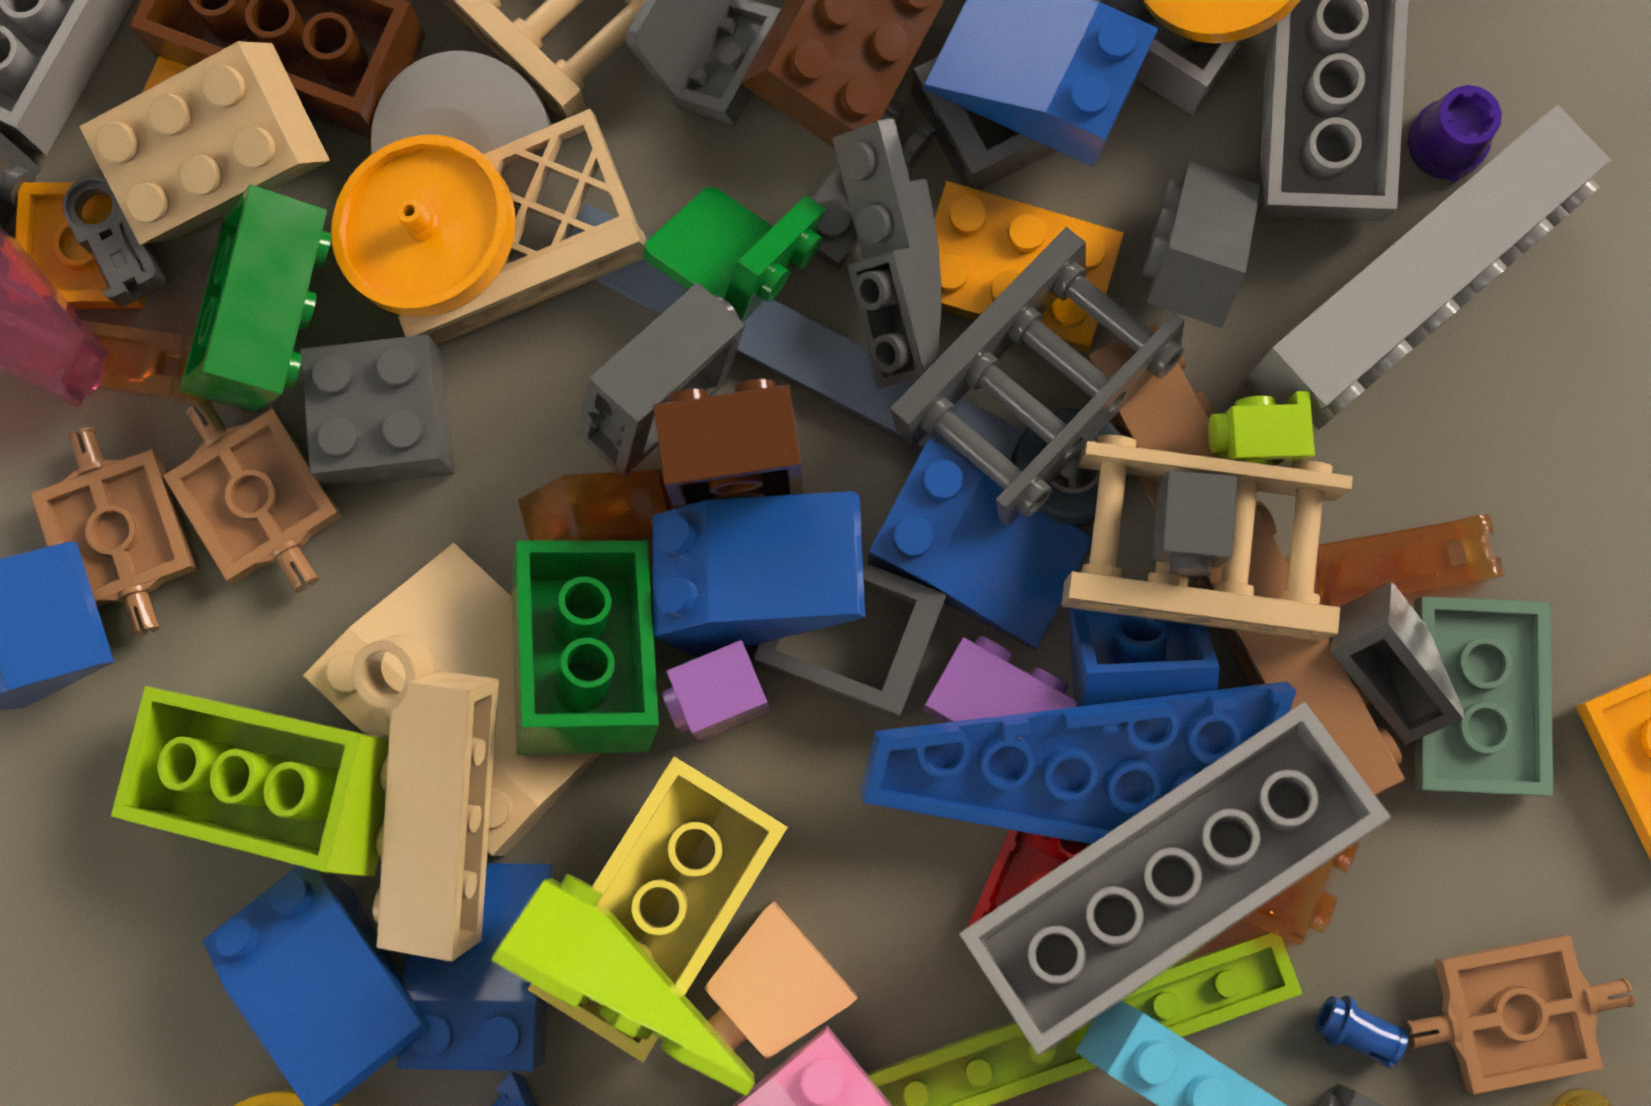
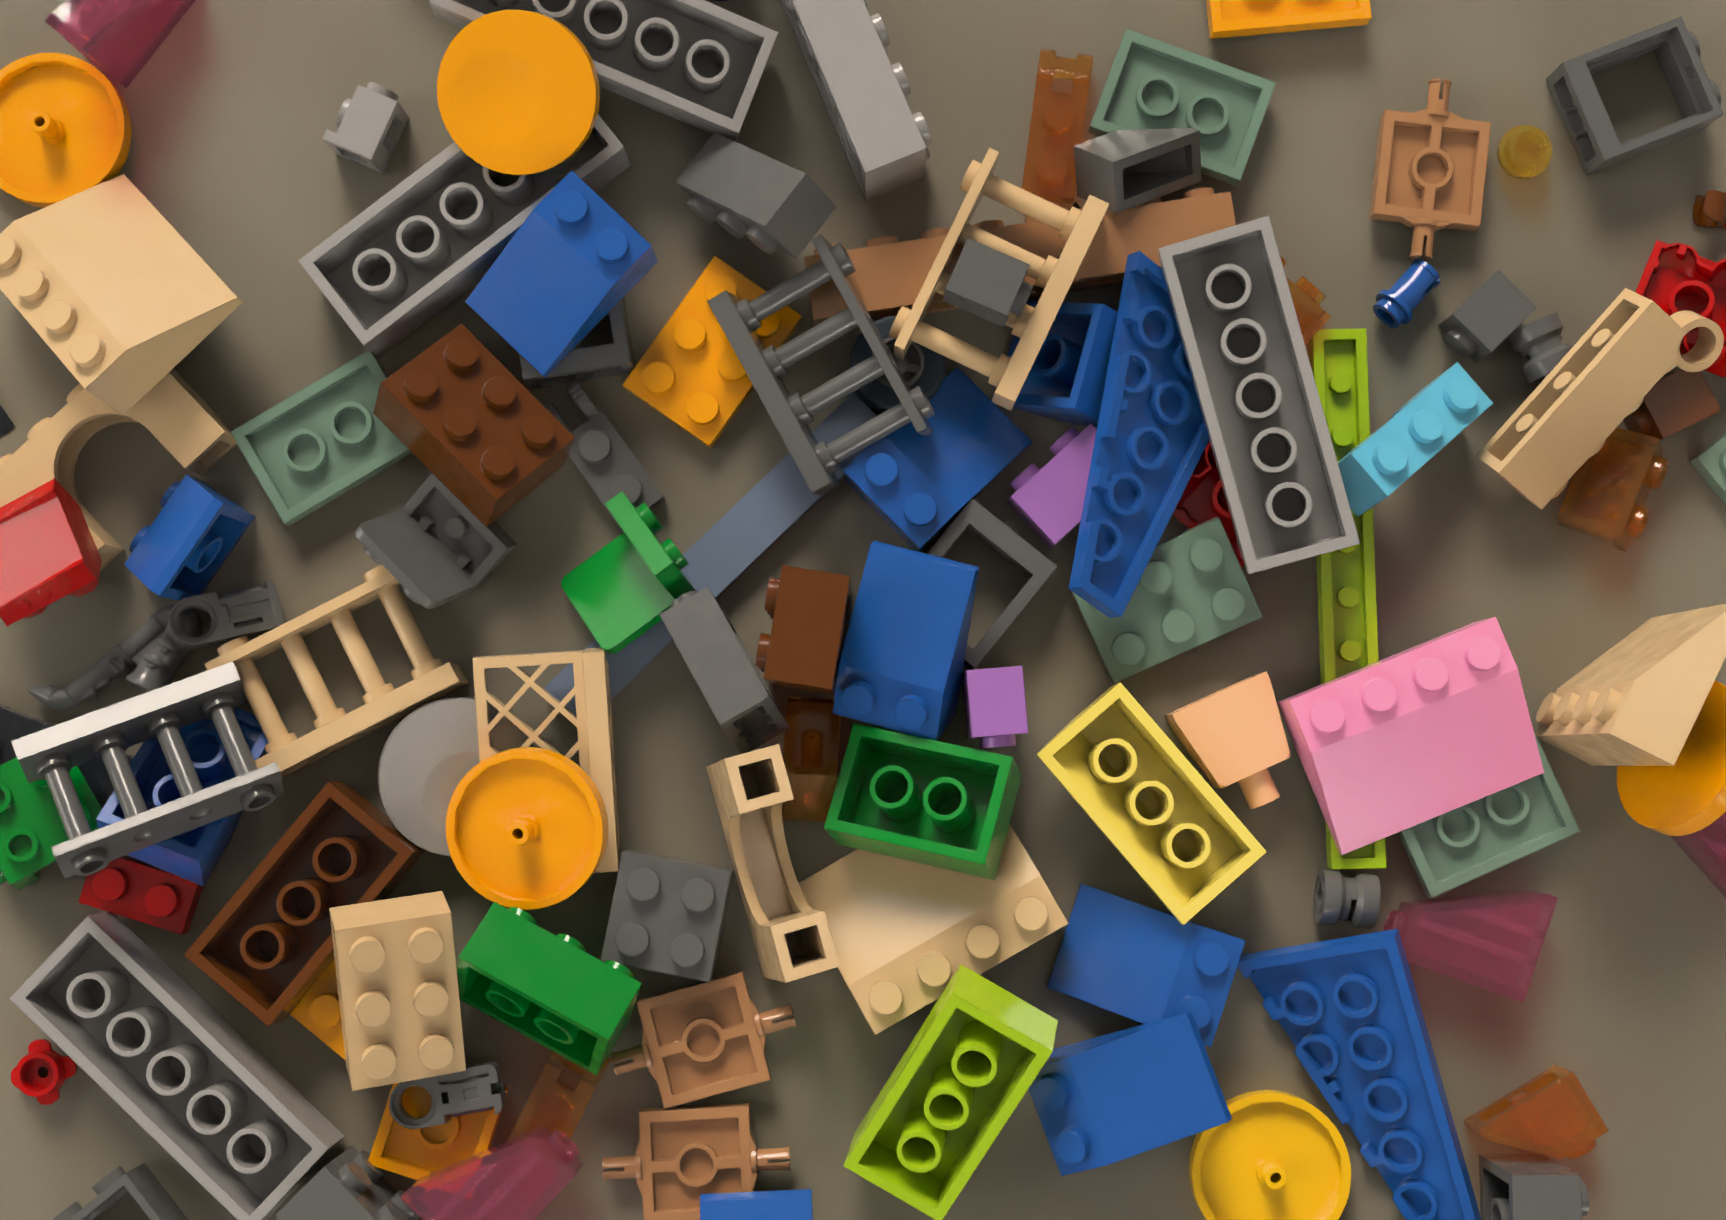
camera: 70 degrees left, 5 degrees up
(418, 525) = (786, 931): none -> tan arch
(434, 800) = (1013, 951): tan hinge -> none
(585, 953) = (1178, 868): lime wedge -> none
(900, 267) = (672, 441): dark grey slope -> none
(905, 869) = (1181, 601): none -> sand green plate
(1263, 431) = (928, 204): lime brick -> none

